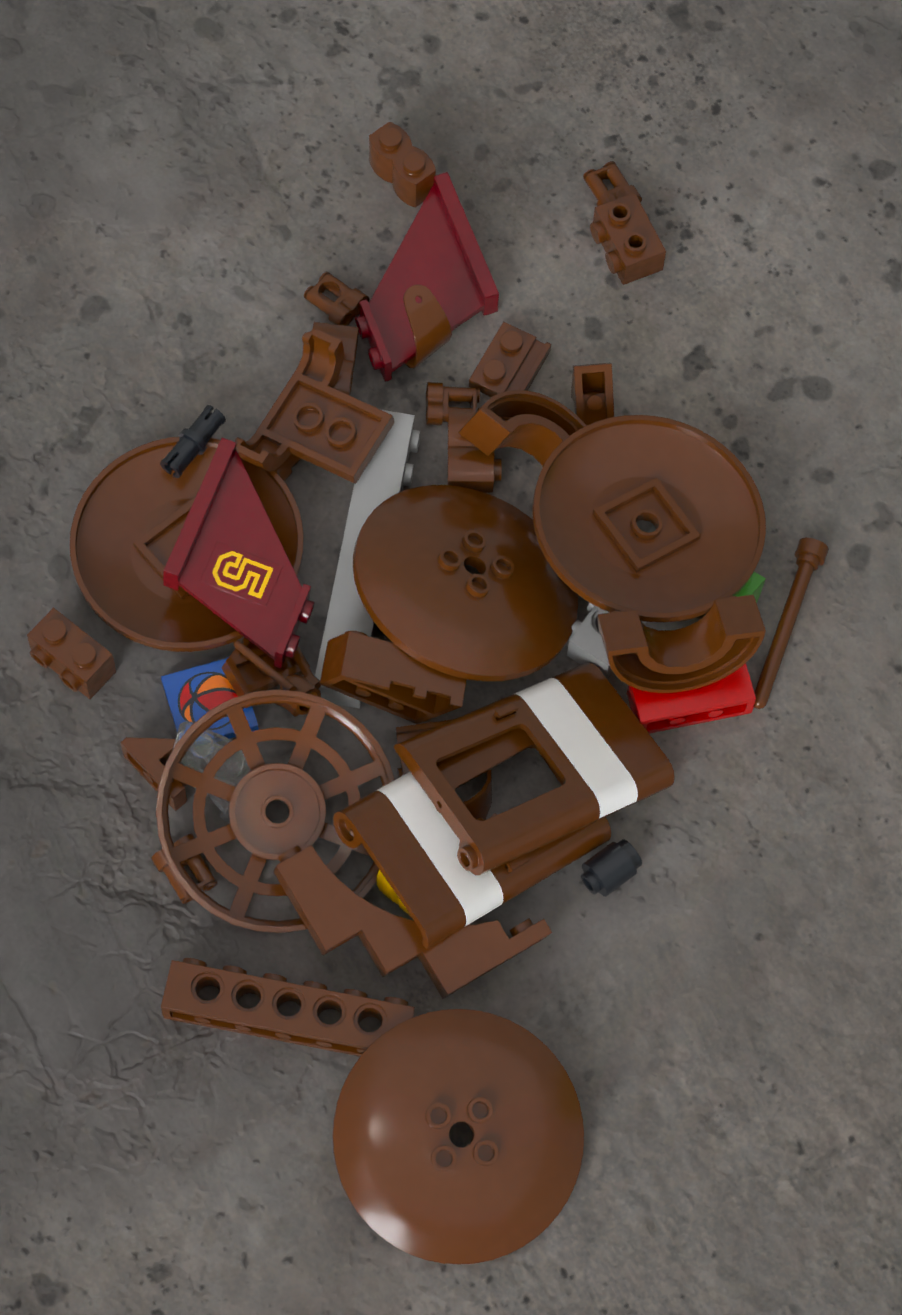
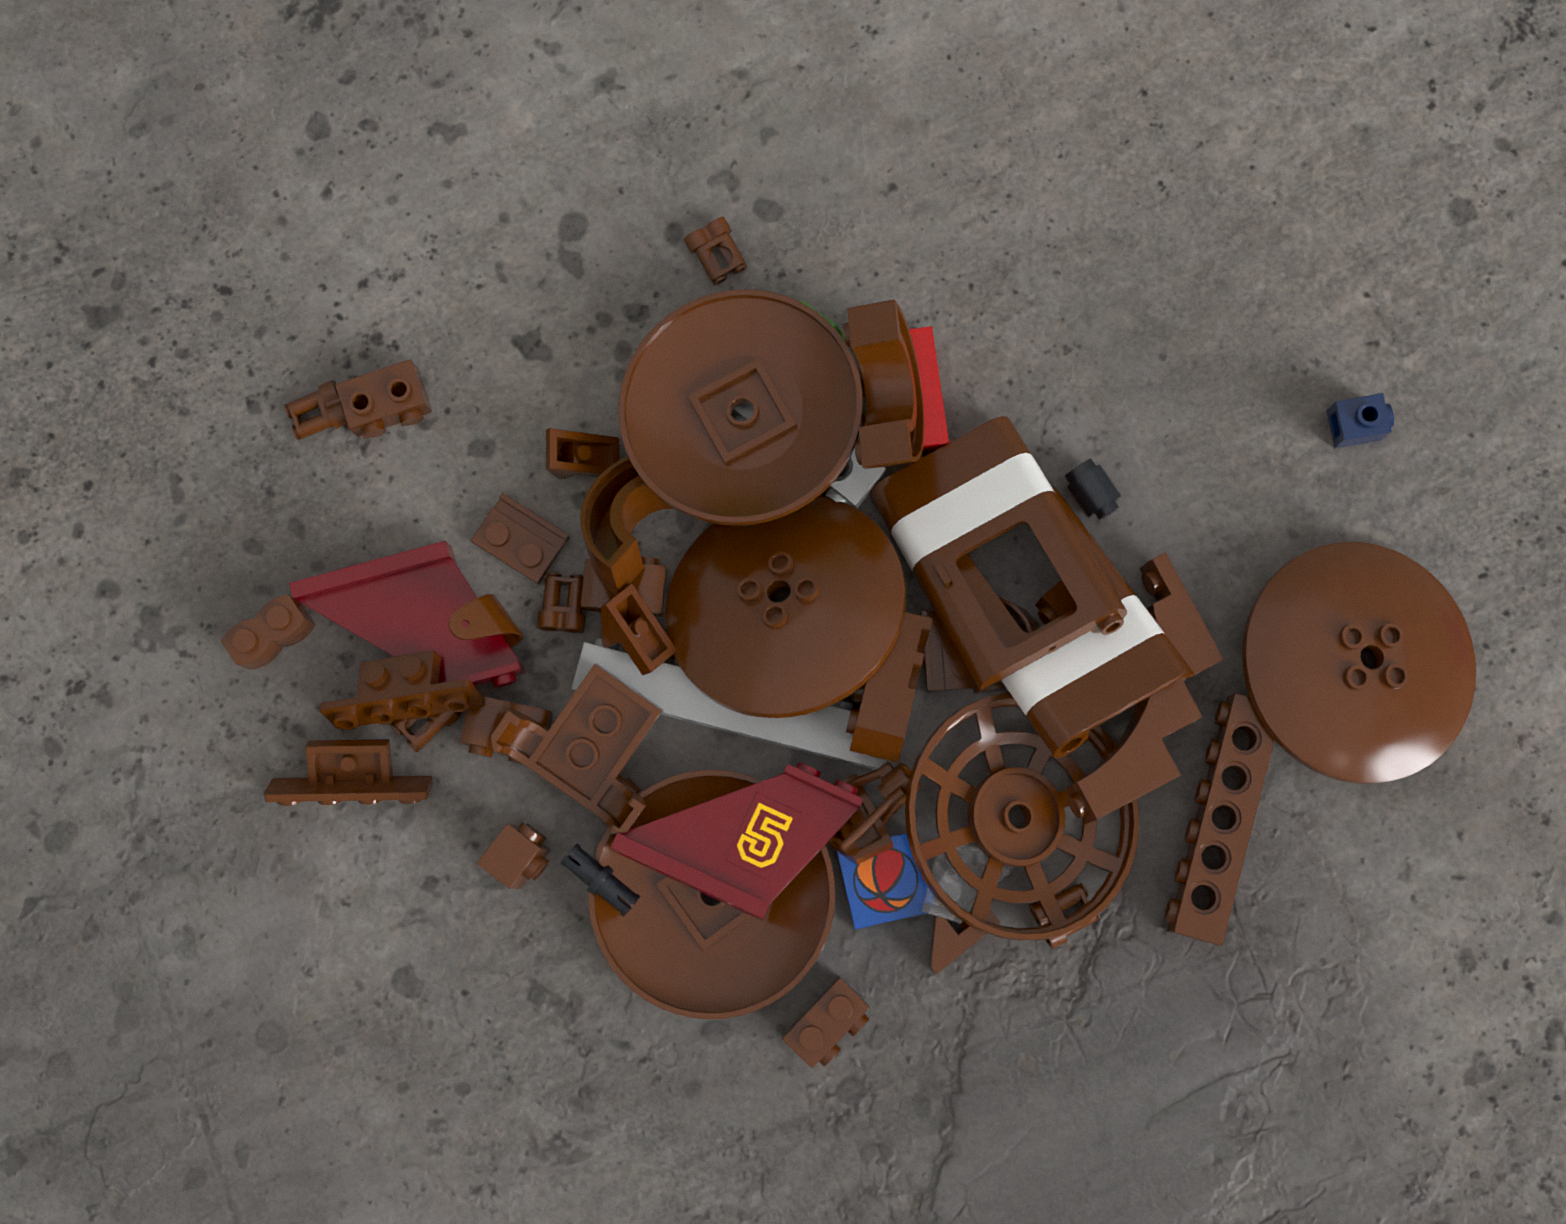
camera: 75 degrees left, 15 degrees up
(211, 373) = (516, 855): none -> reddish brown brick
(279, 240) = (348, 773): none -> reddish brown bracket
(357, 269) = (401, 690): none -> reddish brown bracket
(429, 450) = (632, 623): none -> reddish brown slope
(713, 1128) = (1360, 420): none -> dark blue brick
(810, 555) = (770, 257): reddish brown piece -> none
(817, 498) = (710, 237): none -> reddish brown piece

